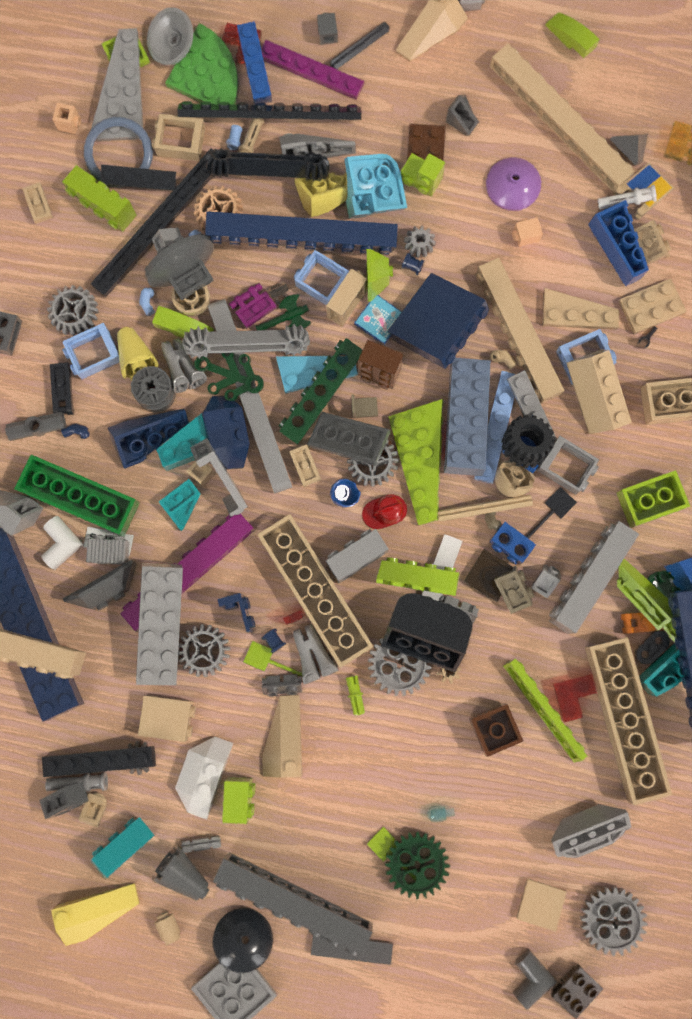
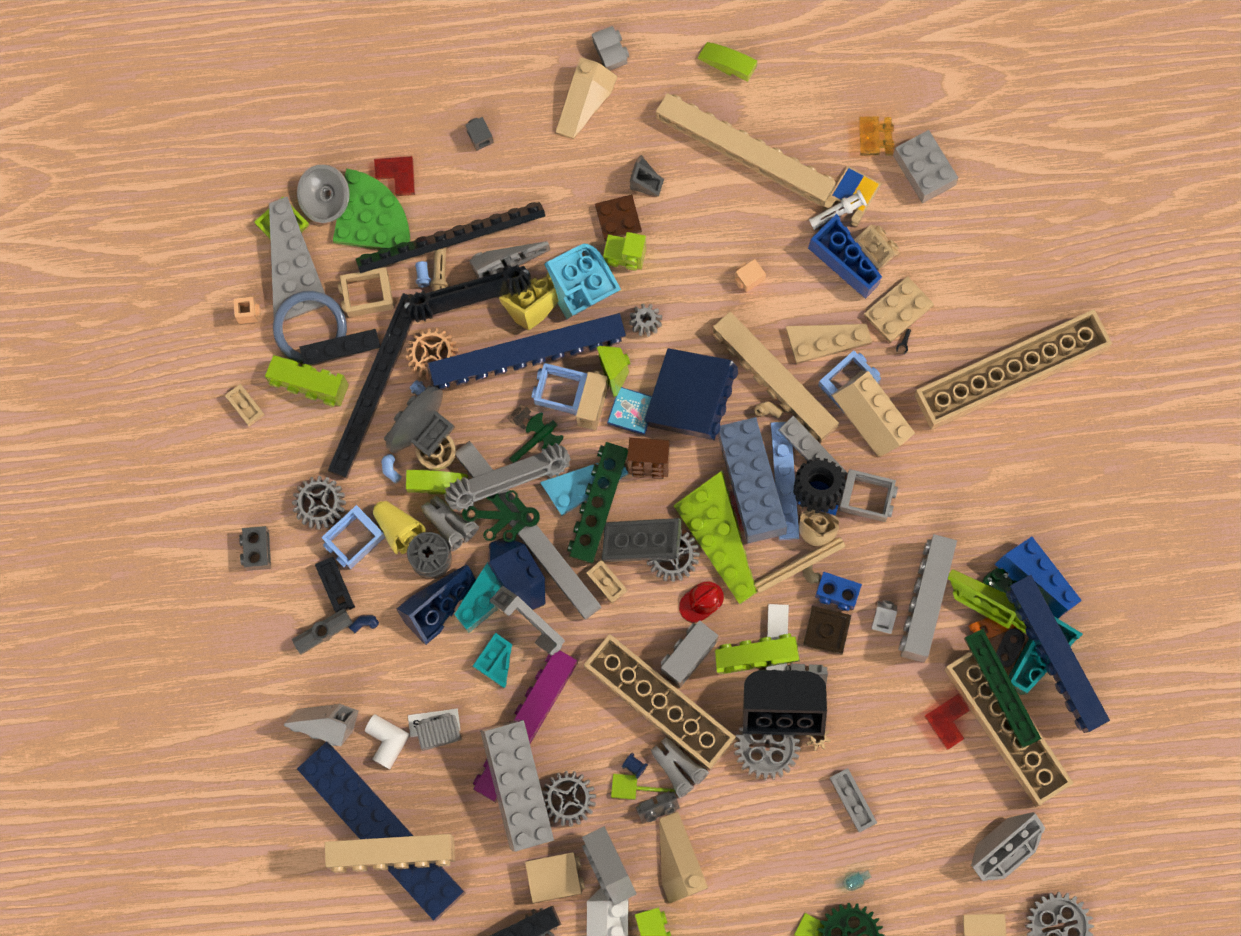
camera: 15 degrees left, 5 degrees down
(77, 495) = (389, 686): green brick -> none
(104, 589) = (448, 771): dark grey wedge -> none
(165, 237) = (392, 401): light grey brick -> none
(201, 474) = (504, 624): tan panel -> none
(216, 726) = (607, 866): none -> light grey brick
(231, 602) = (581, 740): dark blue bracket -> none
(254, 62) = (419, 194): blue brick -> none
(254, 310) = (503, 442): magenta plate -> none
(293, 617) = (646, 736): clear red tile -> none
(312, 69) = (476, 179): magenta plate -> none
(344, 493) = (656, 596): blue hair -> none
(355, 695) = (733, 792): lime axle -> none
(359, 45) = (517, 140): black axle -> none
(364, 407) = (646, 504): dark tan bracket -> none
(413, 264) = (646, 344): dark blue bush -> none
(461, 739) = (853, 800): none -> light grey plate
(496, 729) = (882, 778): reddish brown brick -> none
(512, 193) = (719, 242): medium lavender dish -> none
(514, 590) = (856, 636): dark tan bracket -> none
(545, 711) = (929, 747): lime plate -> none
(559, 504) = (872, 536): black piece -> none
(632, 146) = (825, 155): dark grey slope -> none
(635, 686) = (1002, 688): none -> dark green plate
(653, 499) = (961, 502): lime brick -> none

